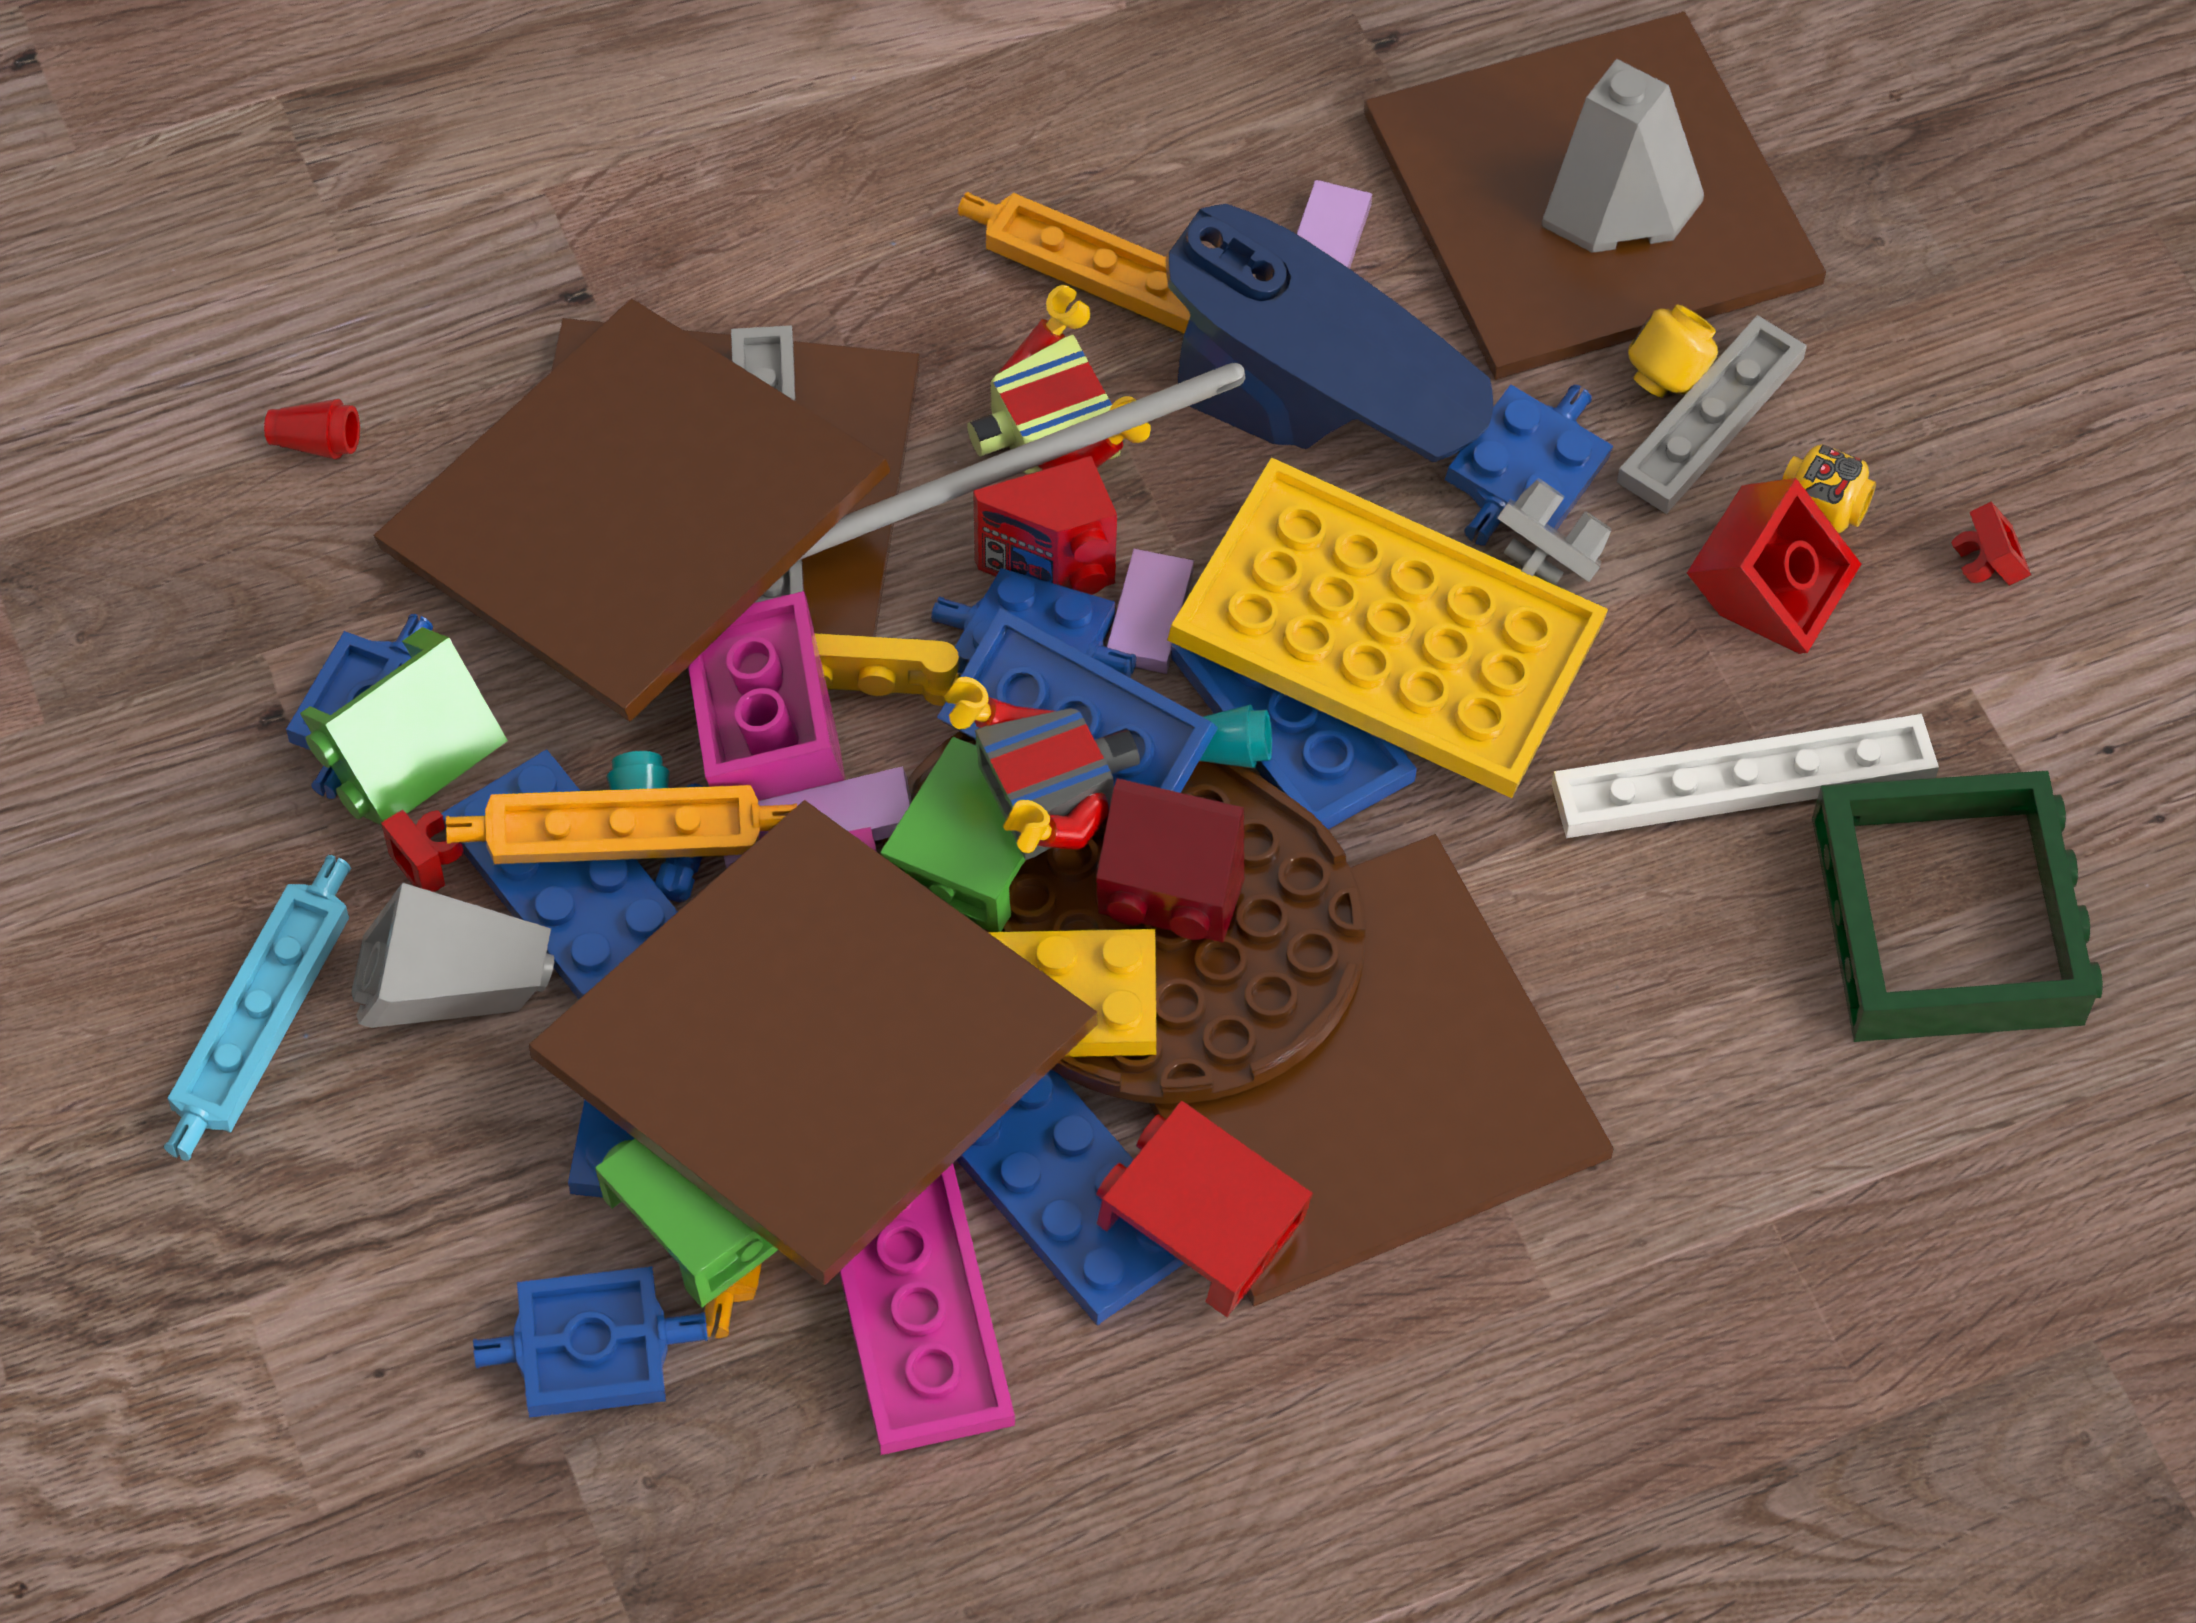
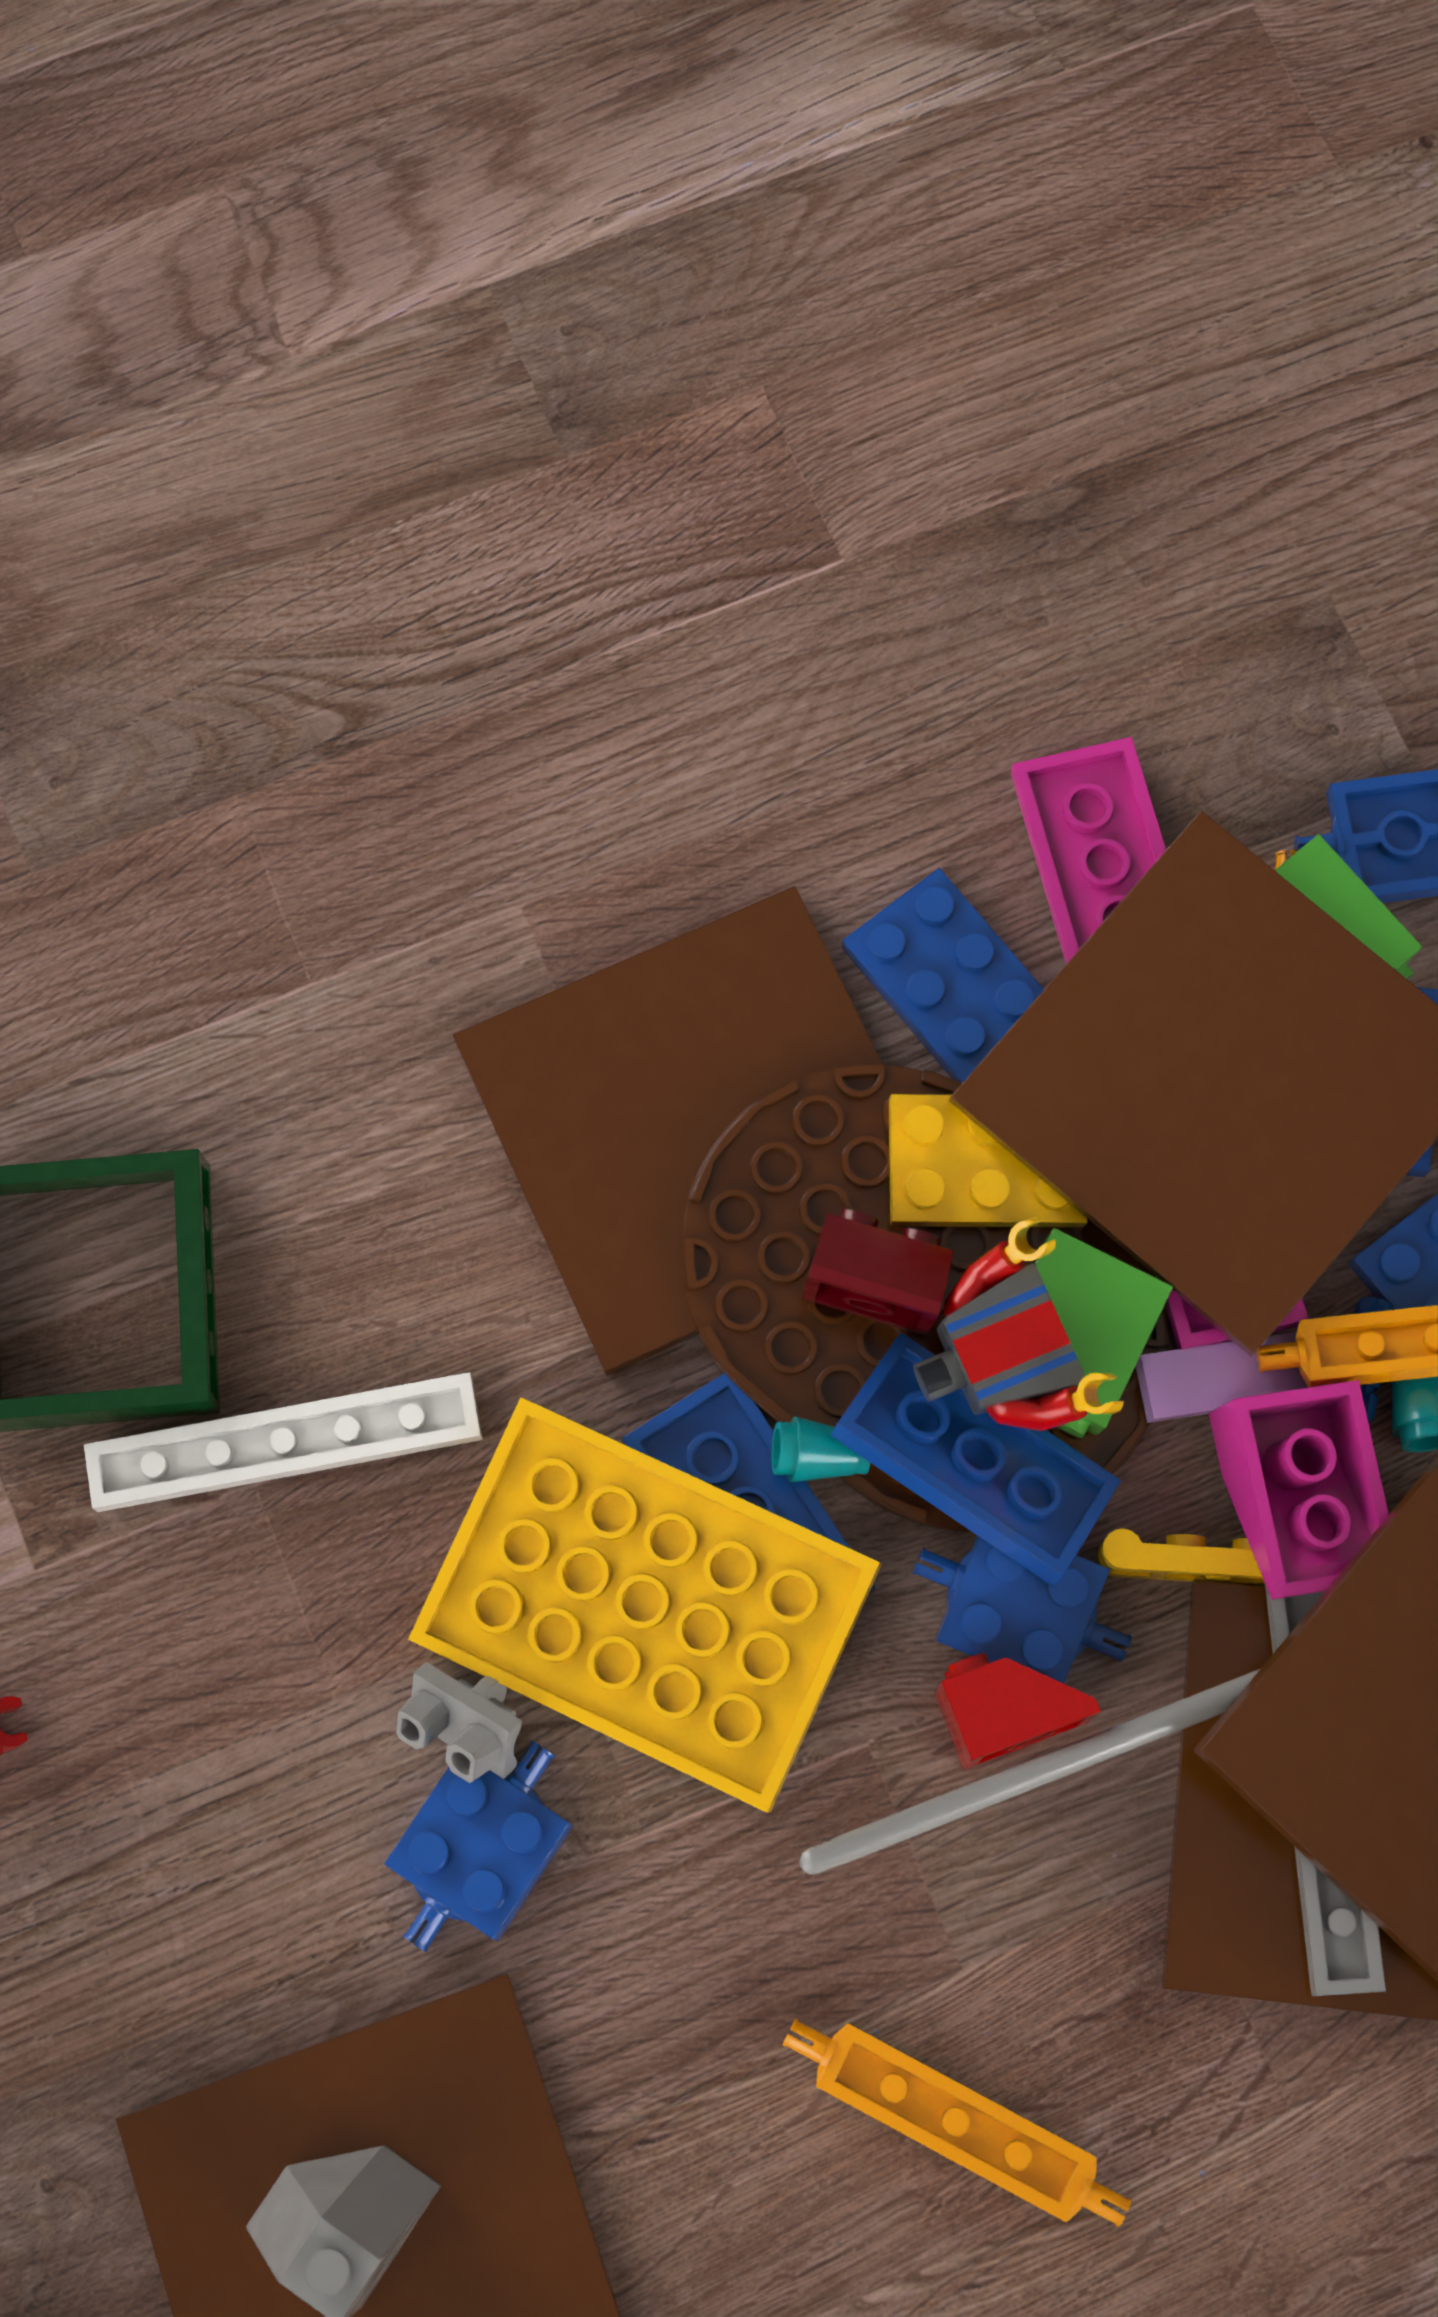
camera: 175 degrees left, 15 degrees up
(1050, 389) = (1011, 1904): torso -> none
(1148, 605) = (897, 1648): lavender tile -> none
(1205, 1202) = (847, 937): red panel -> none
(1314, 343) = (705, 1962): dark blue piece -> none
(1335, 219) = (692, 2175): lavender tile -> none
(1672, 351) = (305, 1982): yellow head -> none
(1711, 414) = (267, 1912): light grey plate -> none
(1775, 564) = (224, 1700): red slope -> none
(1835, 483) = (152, 1794): head -> none

